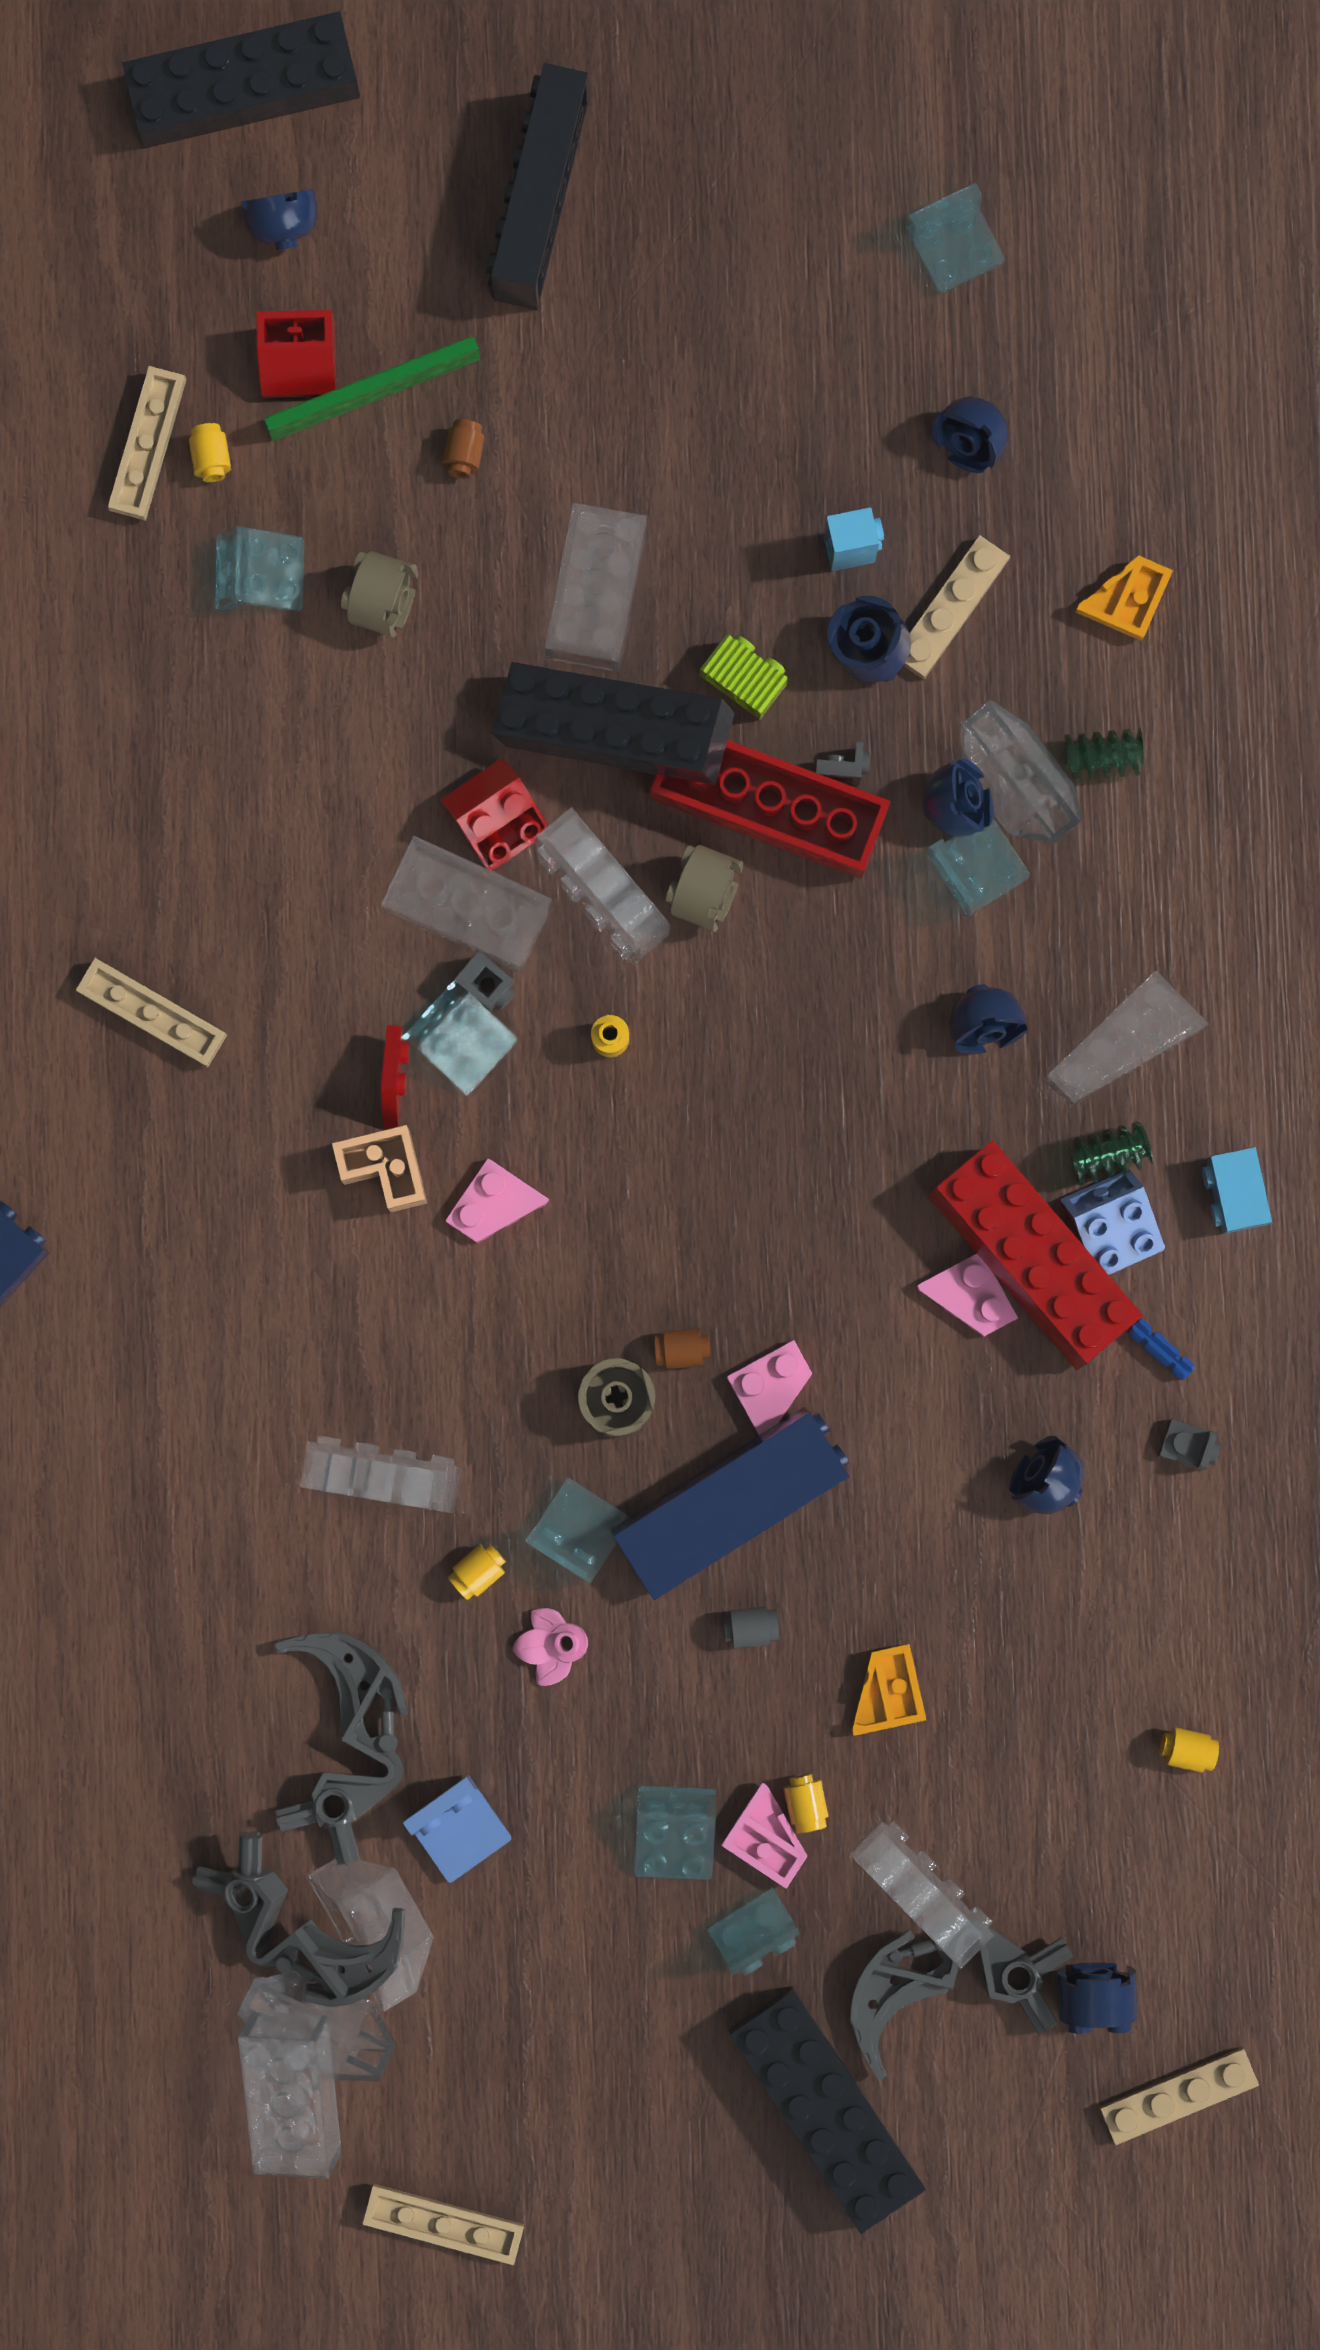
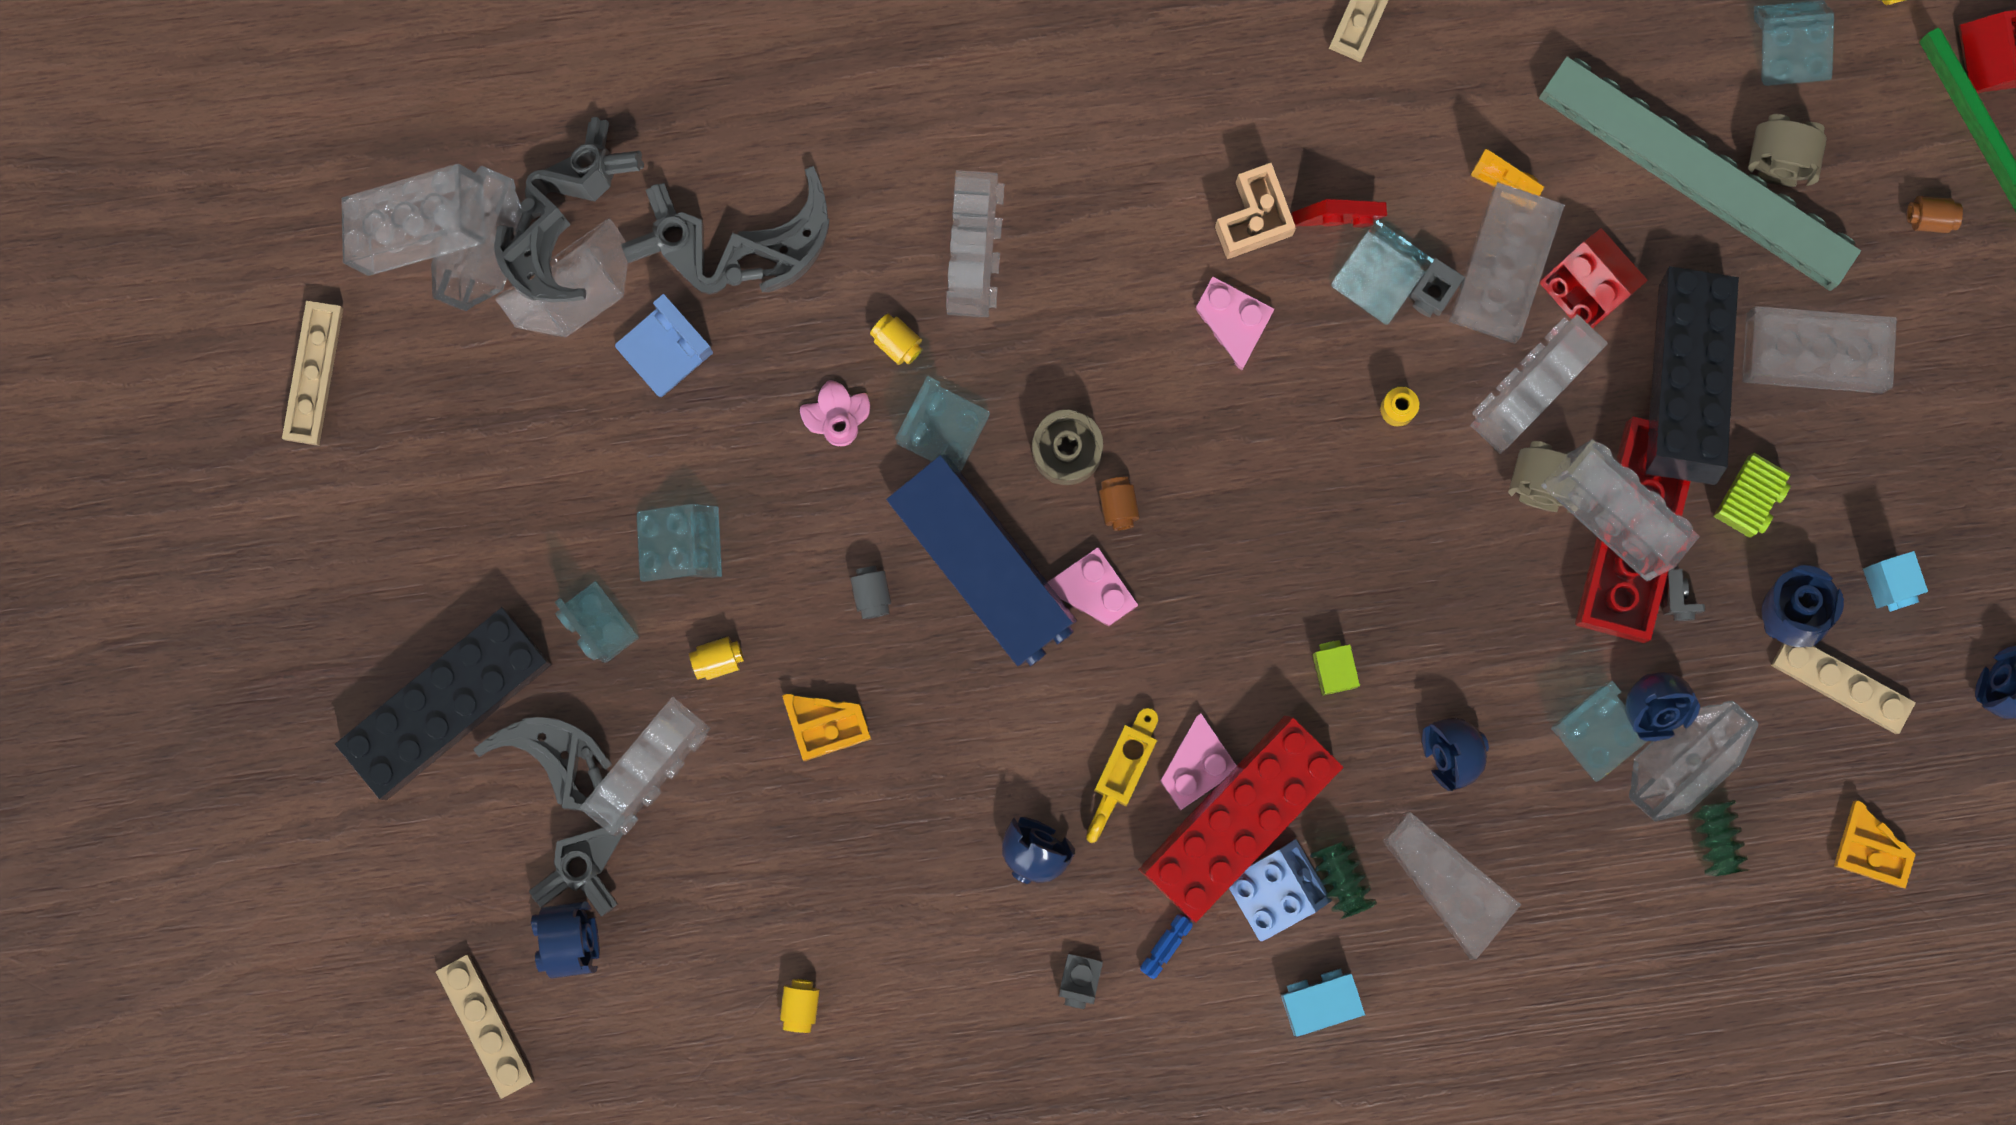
camera: 85 degrees right, 0 degrees up
(369, 900) = (1494, 169): none -> light orange wing
(391, 689) = (1700, 174): none -> sand green brick
(755, 815) = (1620, 510): none -> clear brick
(766, 1839) = (681, 626): bright pink wing -> none
(883, 1136) = (1335, 668): none -> lime brick
(974, 1376) = (1122, 773): none -> yellow piece

